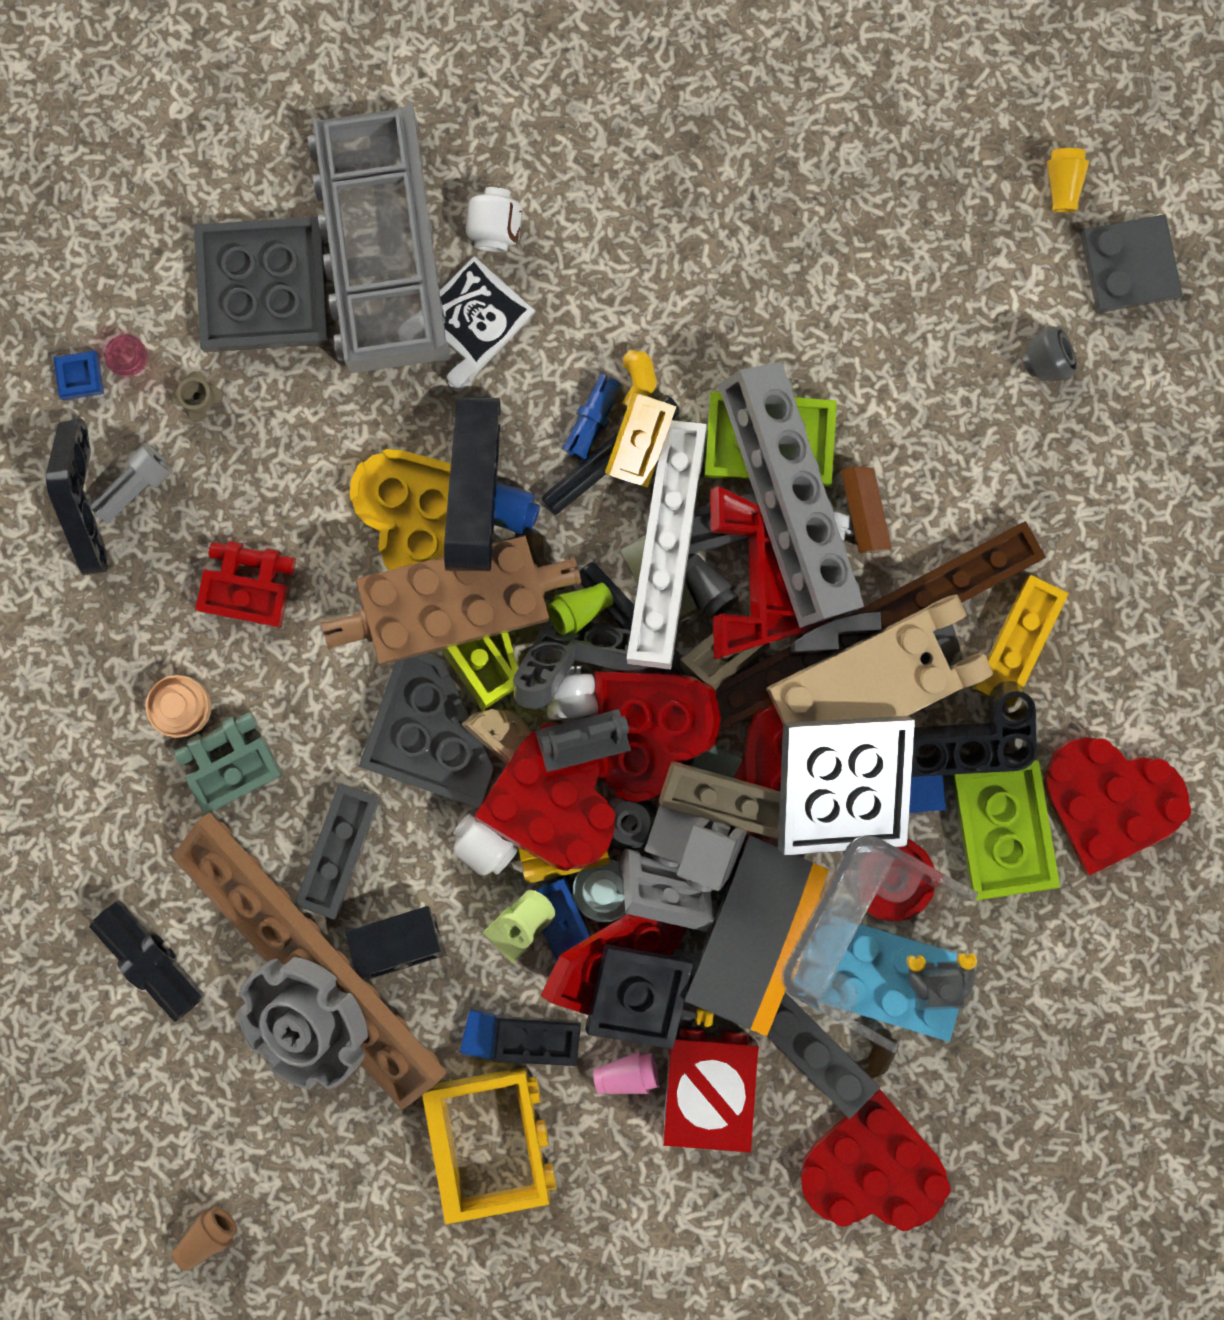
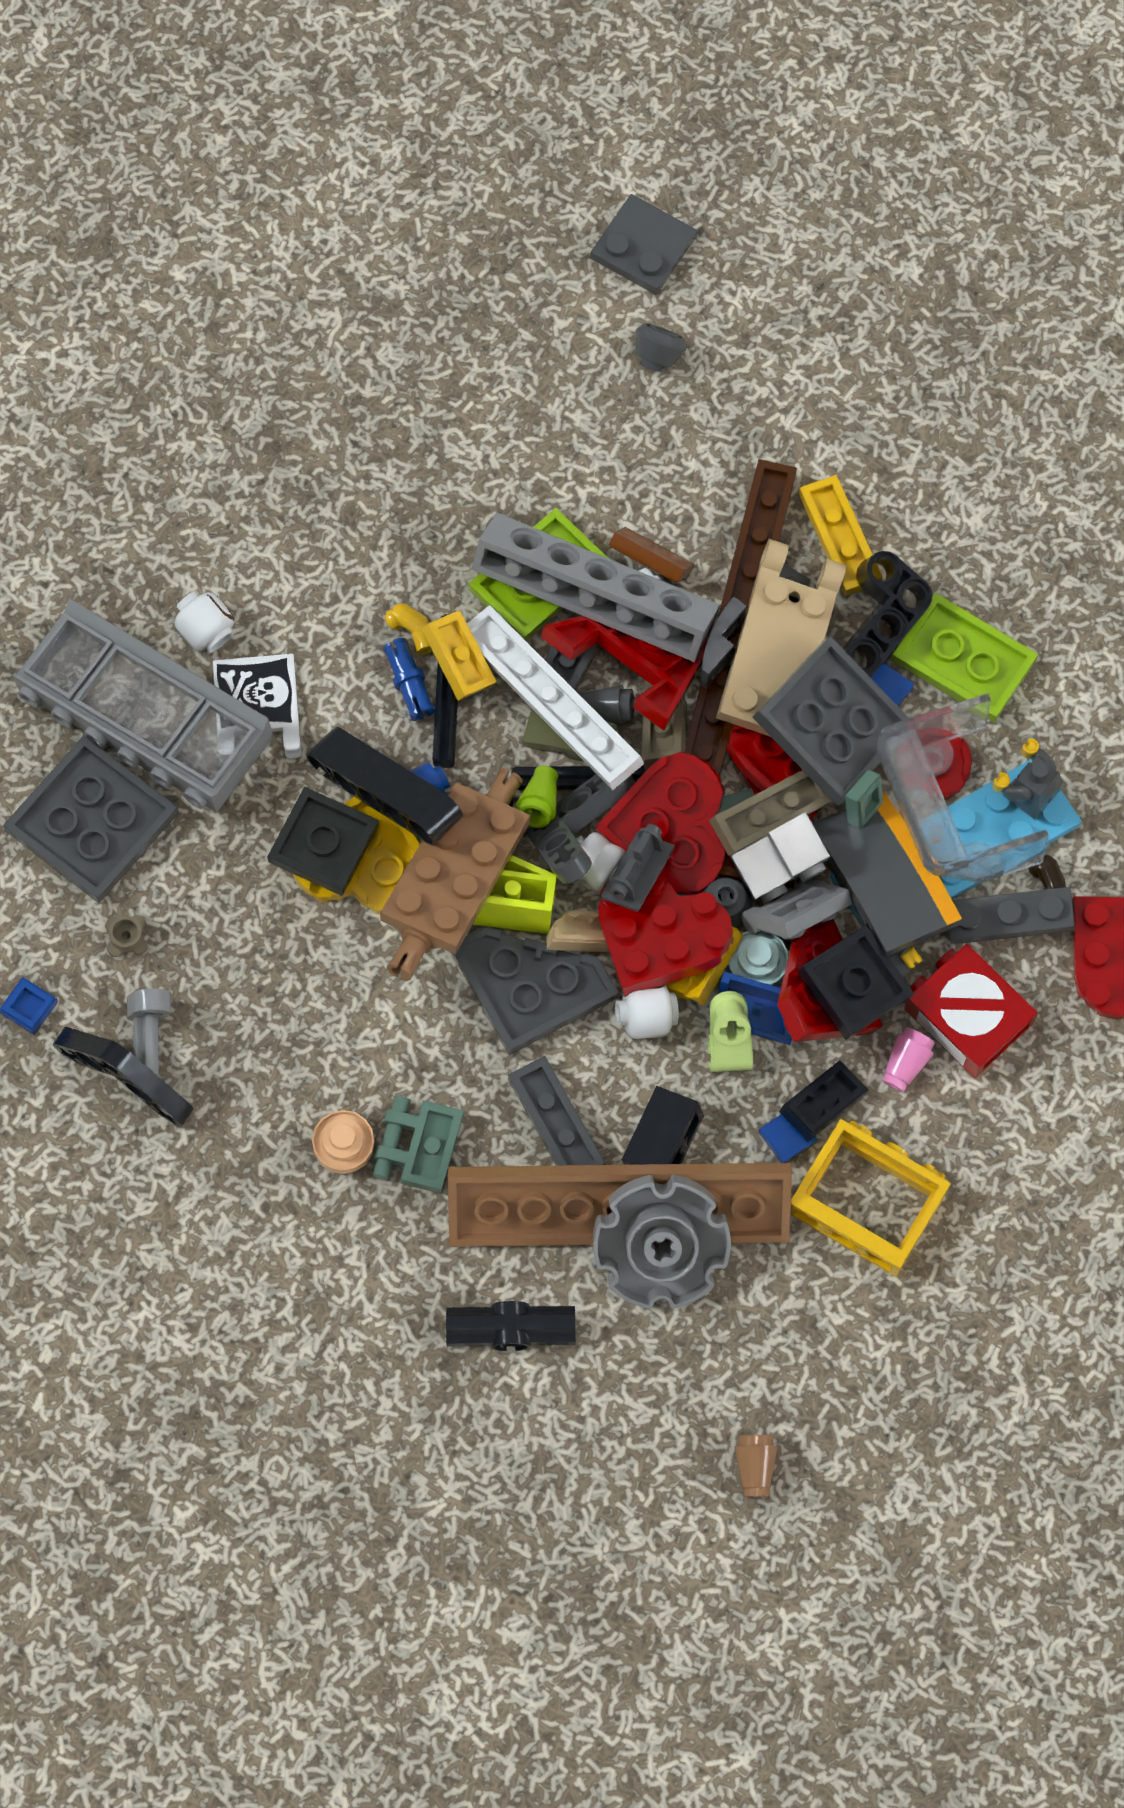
camera: 50 degrees left, 15 degrees down
(125, 355) = (47, 959): clear pink plate -> none
(244, 597) = (304, 1029): red plate -> none
(392, 476) = (323, 841): none -> pearl dark grey plate
(802, 865) = (864, 799): none -> sand green tile
(1066, 178) = (544, 232): yellow cone -> none
(1113, 803) = (1011, 574): red plate -> none

